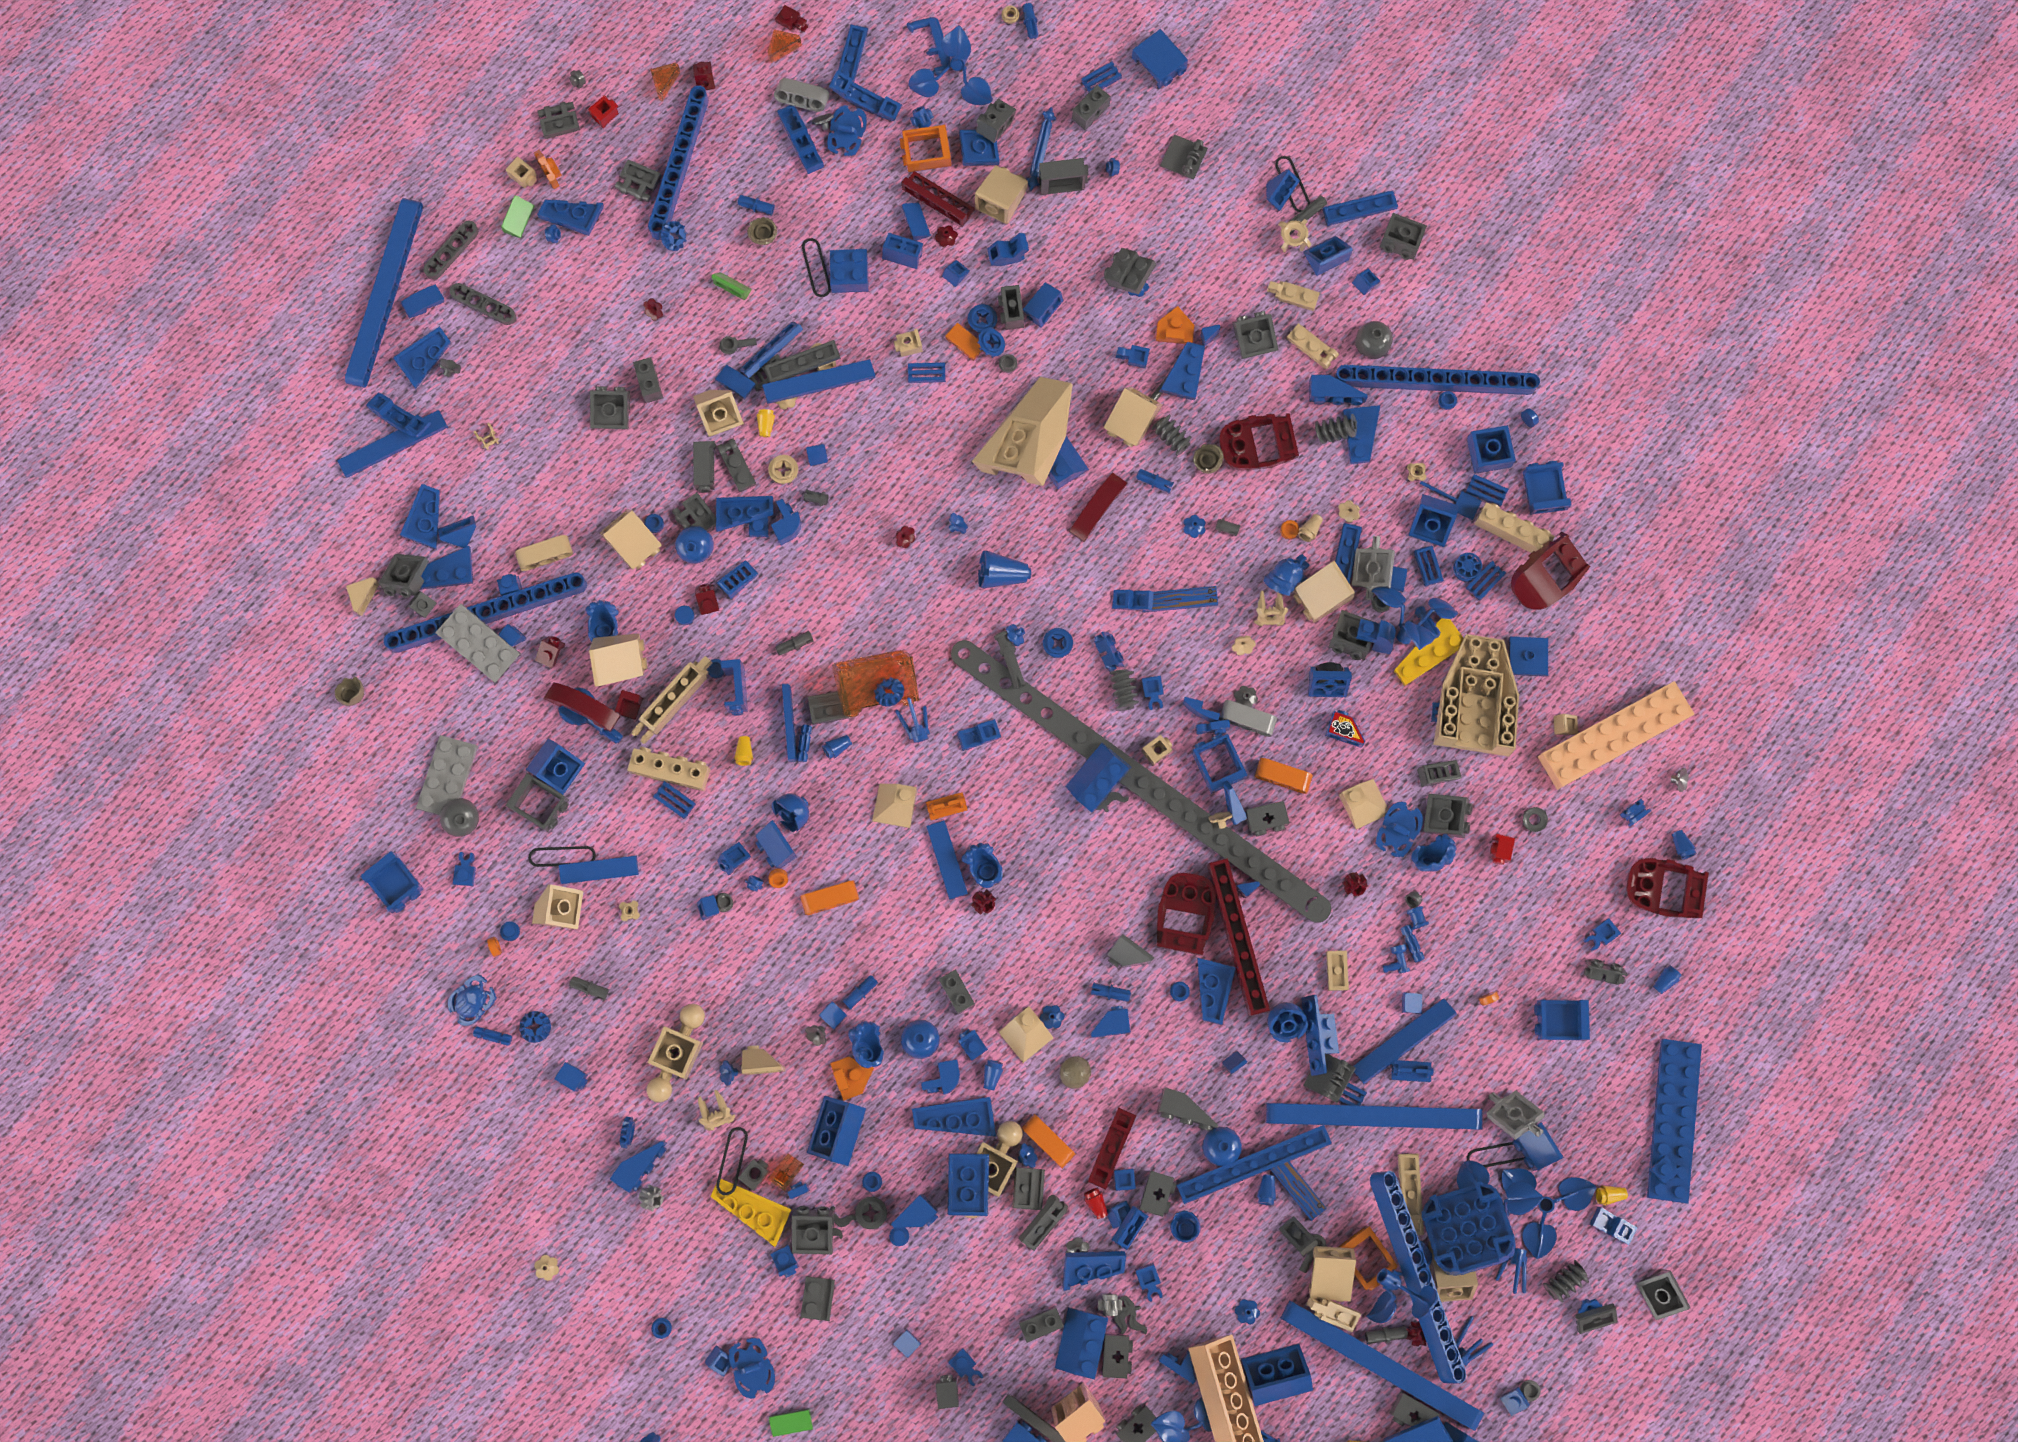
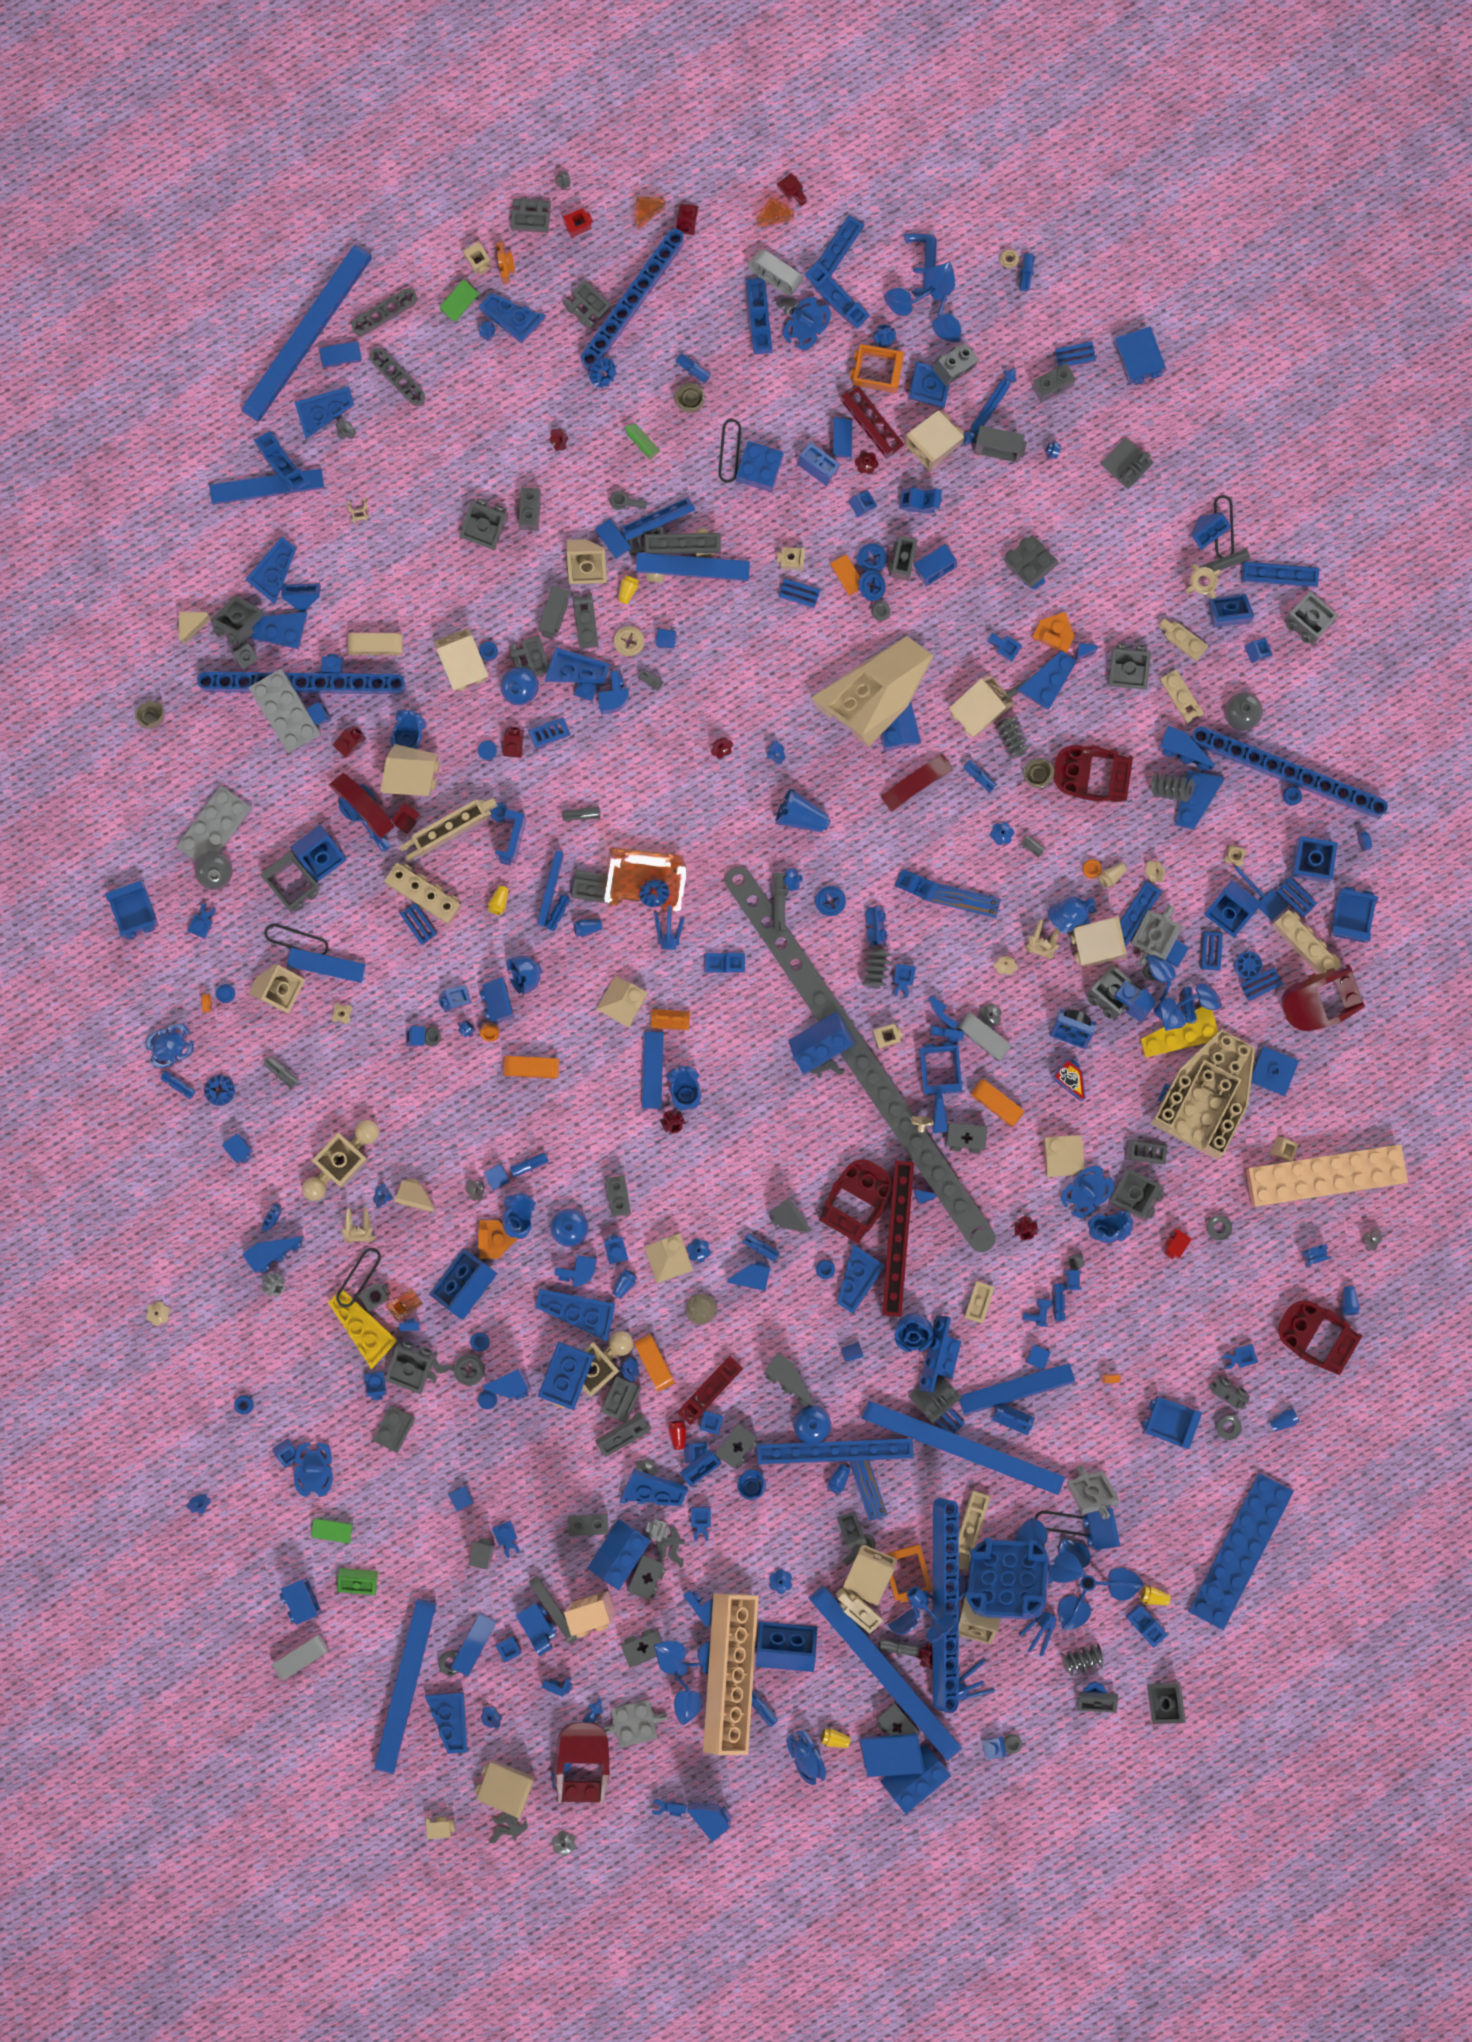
camera: 20 degrees right, 5 degrees up
(1625, 1005) = (1236, 1427): none -> dark grey piece

